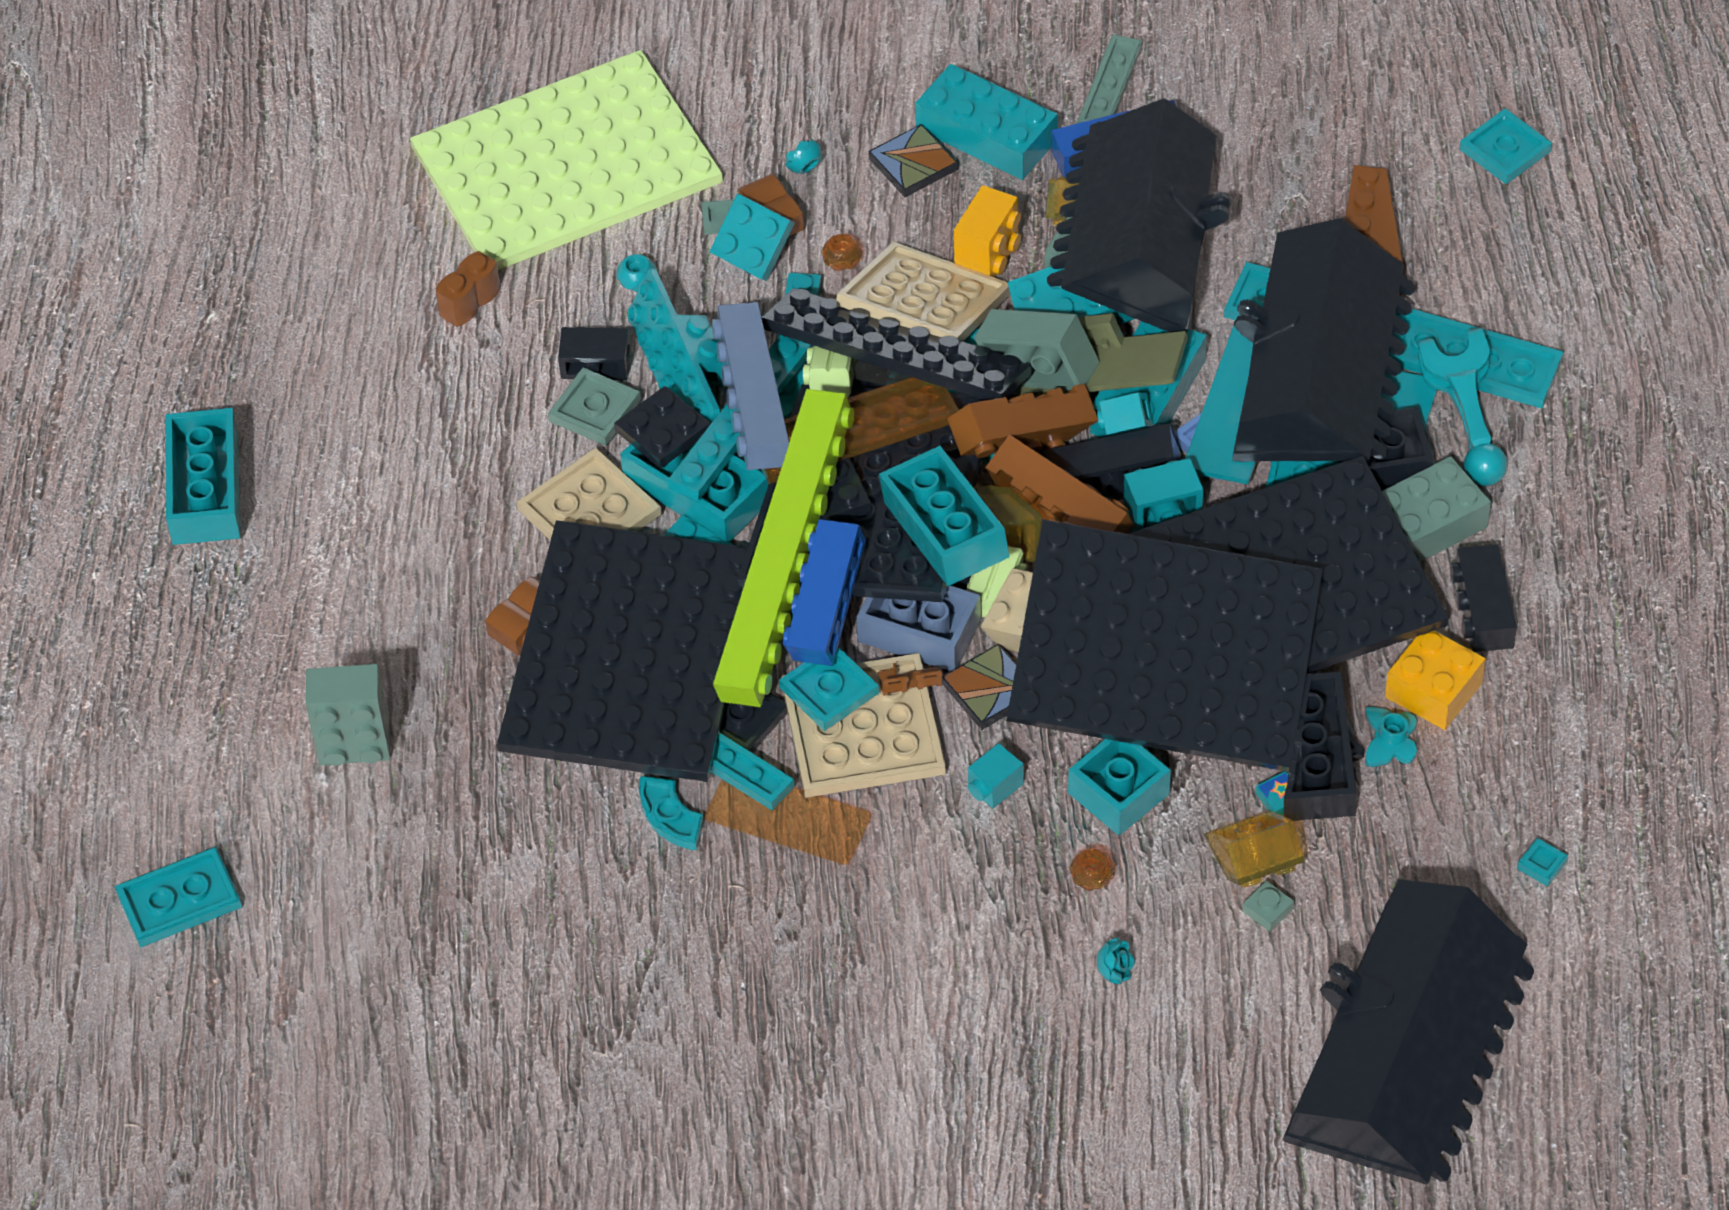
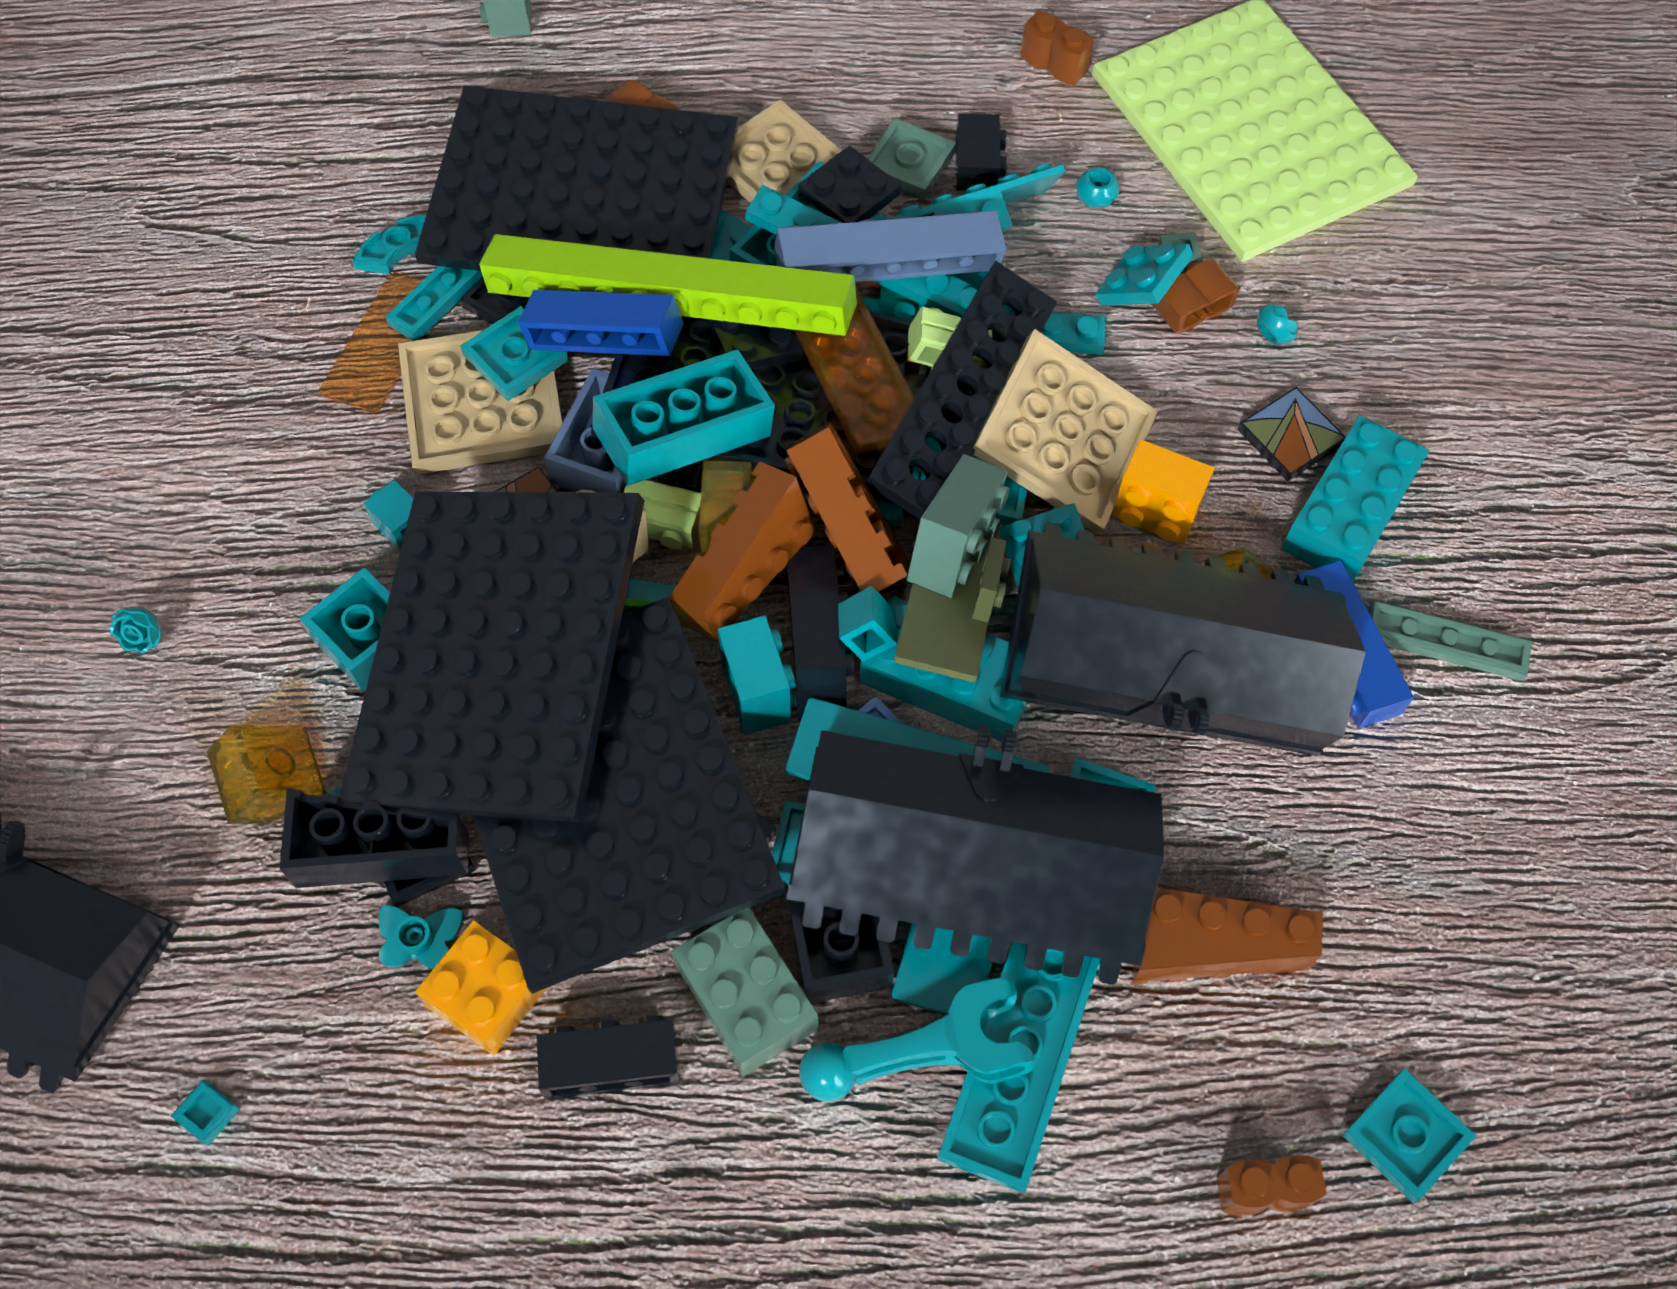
camera: 85 degrees right, 10 degrees up
(841, 252) = (1146, 376): clear orange plate -> none
(920, 678) = (525, 423): dark orange piece -> none
(1092, 878) = (270, 623): clear orange plate -> none
(1268, 906) = (192, 791): sand green plate -> none
(1549, 219) = (1282, 1187): none -> dark orange brick

